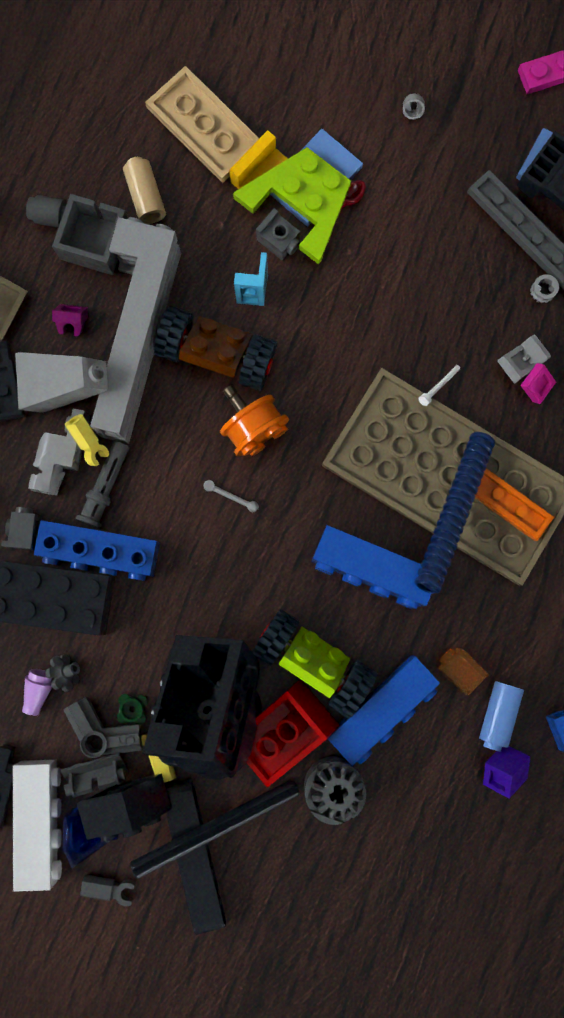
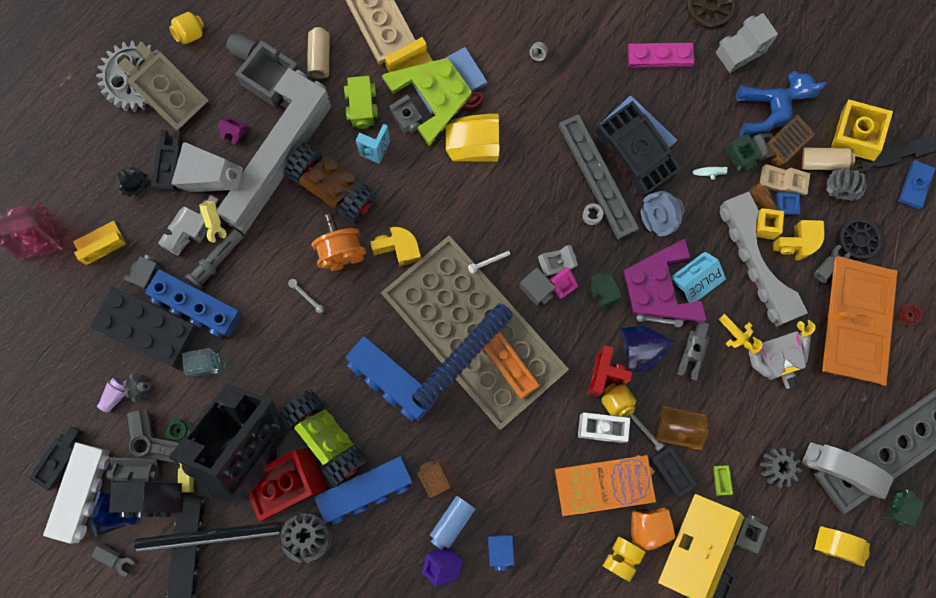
camera: 15 degrees right, 5 degrees down
(131, 618) = (200, 363): none -> clear light blue brick
(215, 227) = (361, 107): none -> lime brick
(328, 394) = (402, 242): none -> yellow brick
(371, 238) = (473, 138): none -> yellow slope
(509, 398) = (537, 287): none -> dark grey brick

